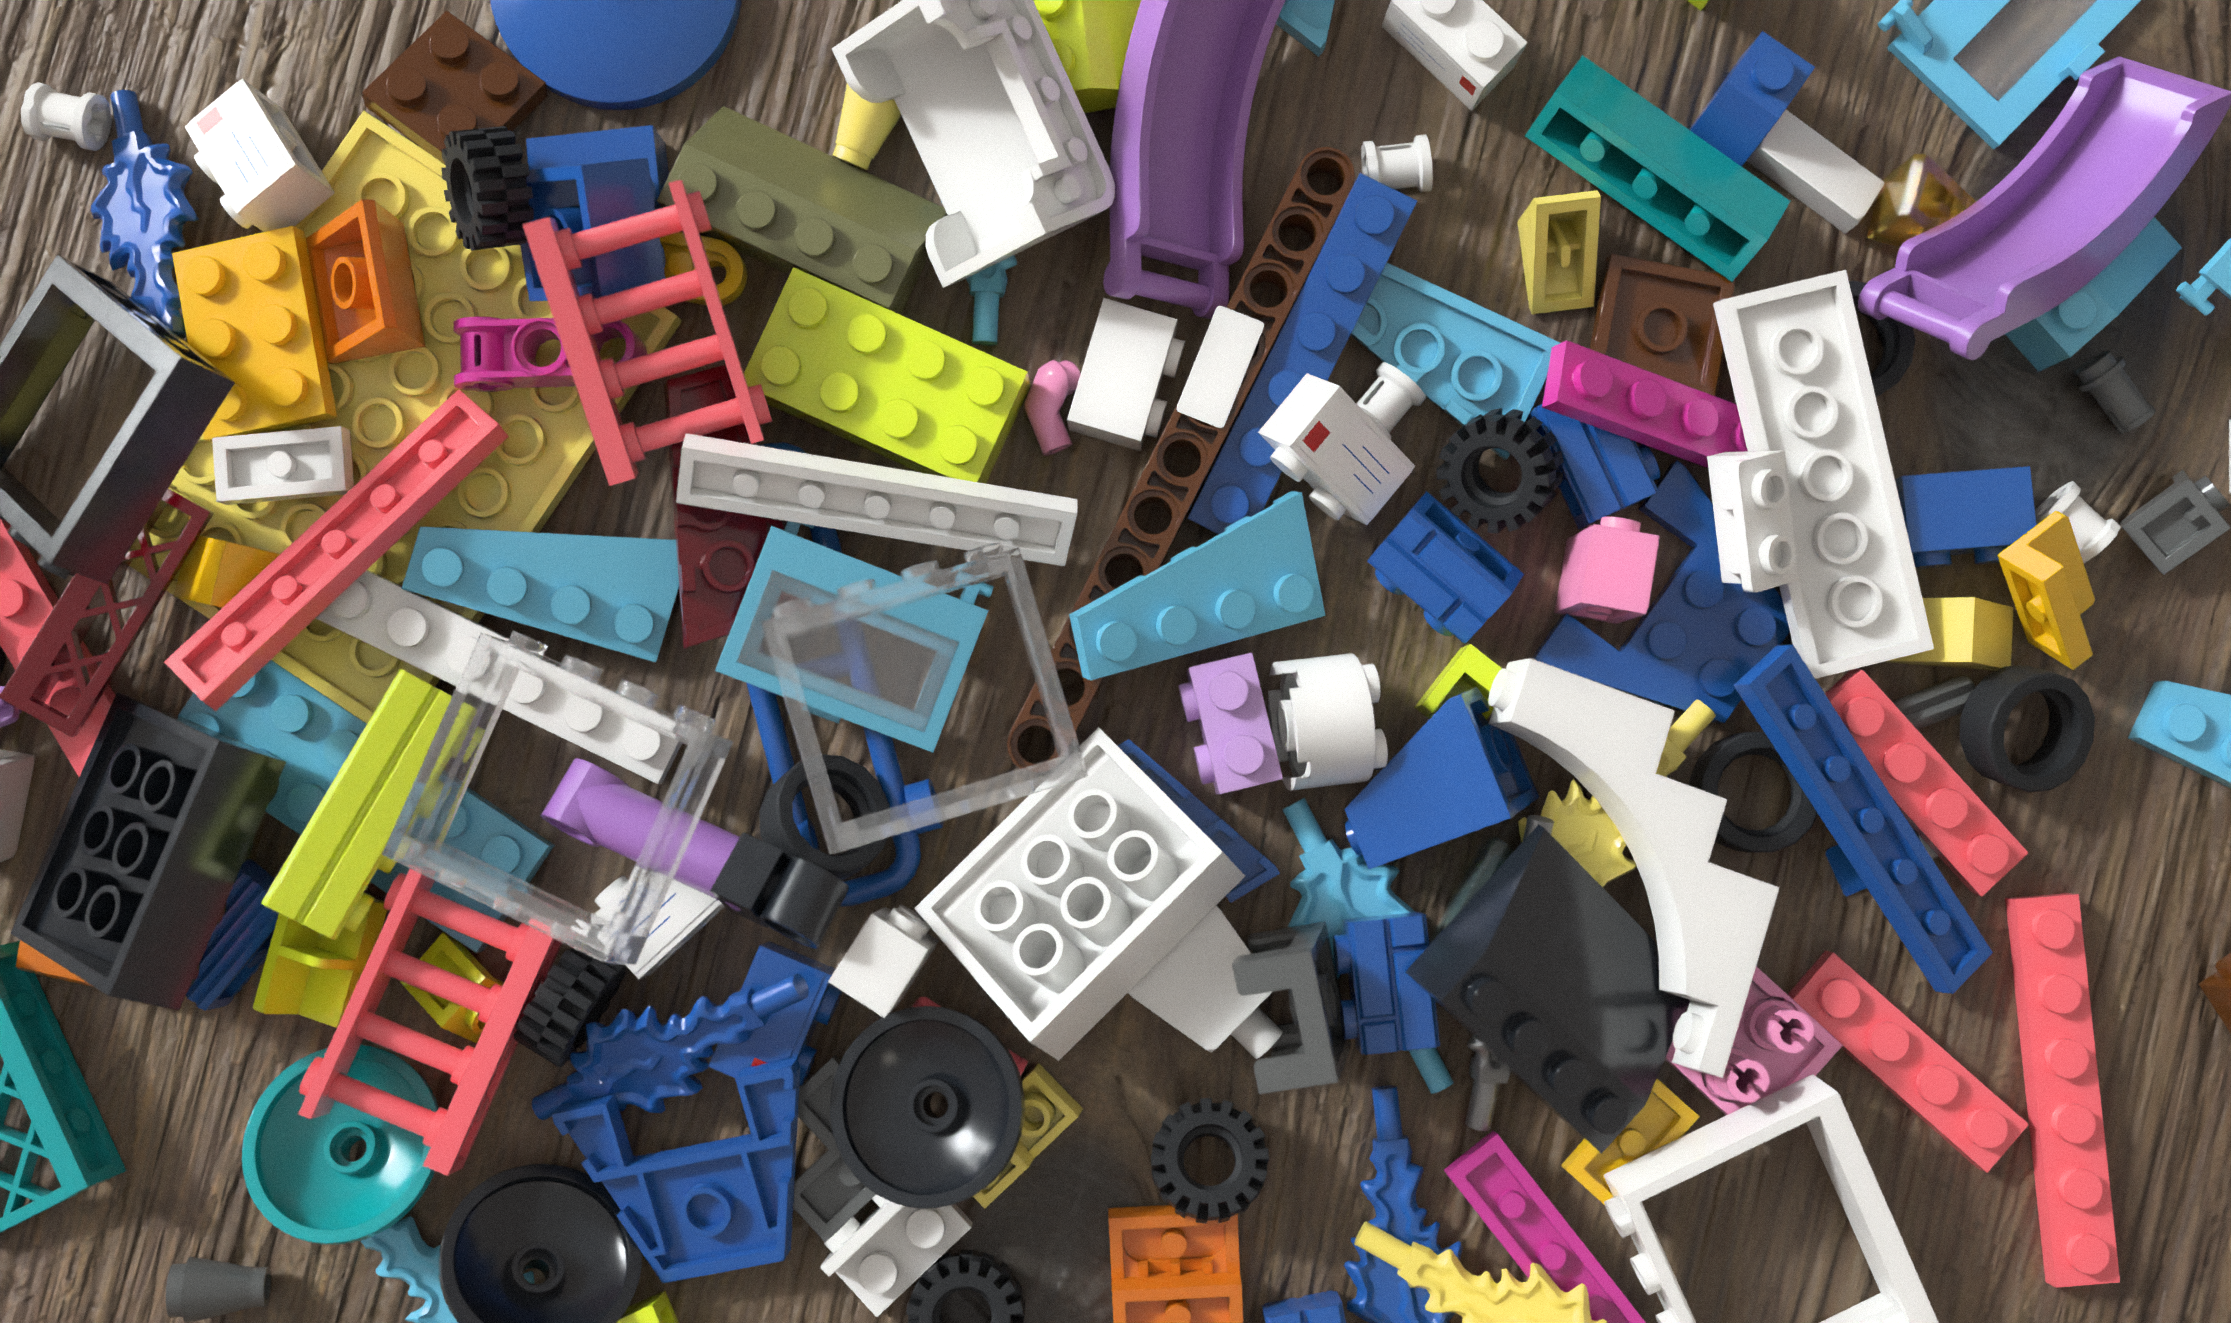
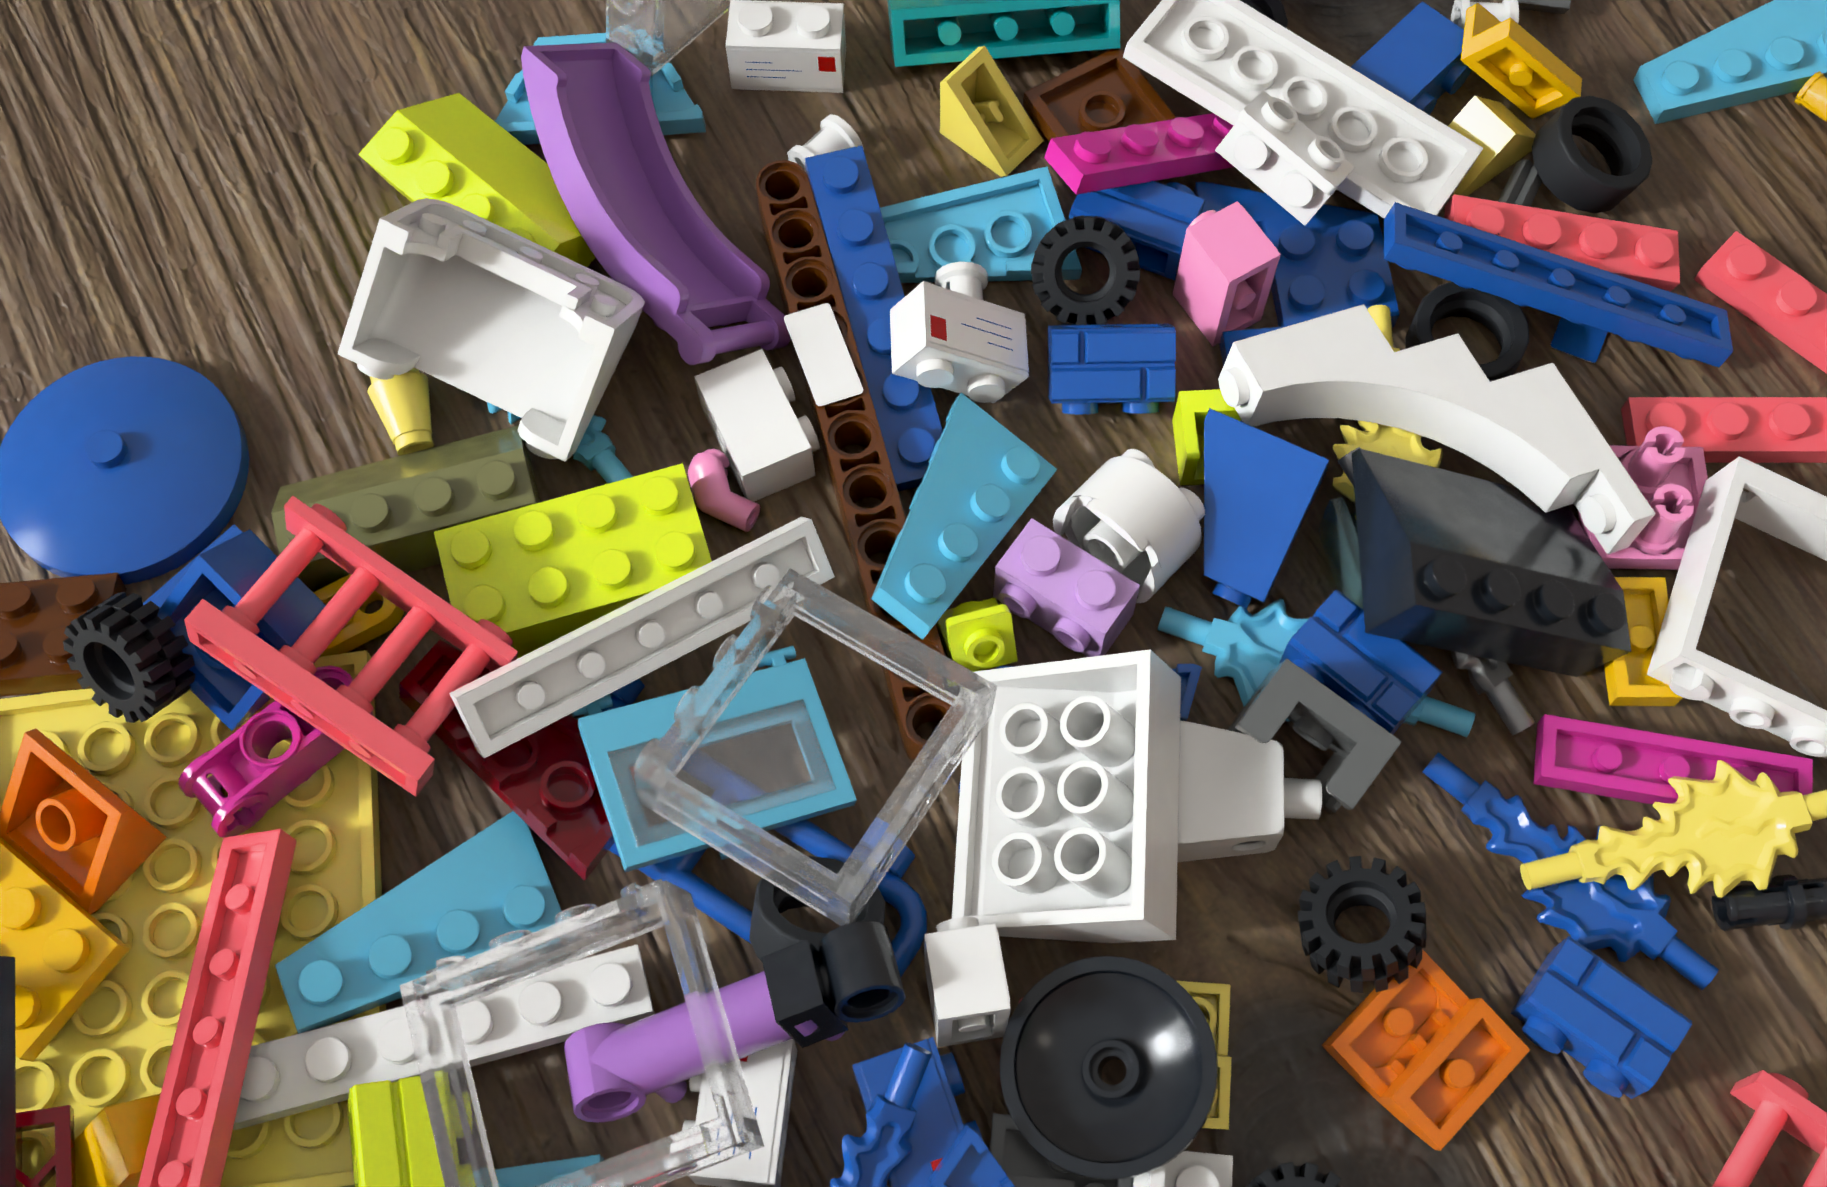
camera: 40 degrees left, 20 degrees down
(282, 465) = (108, 1023): white plate -> none
(1135, 703) = (978, 634): none -> neon yellow bracket

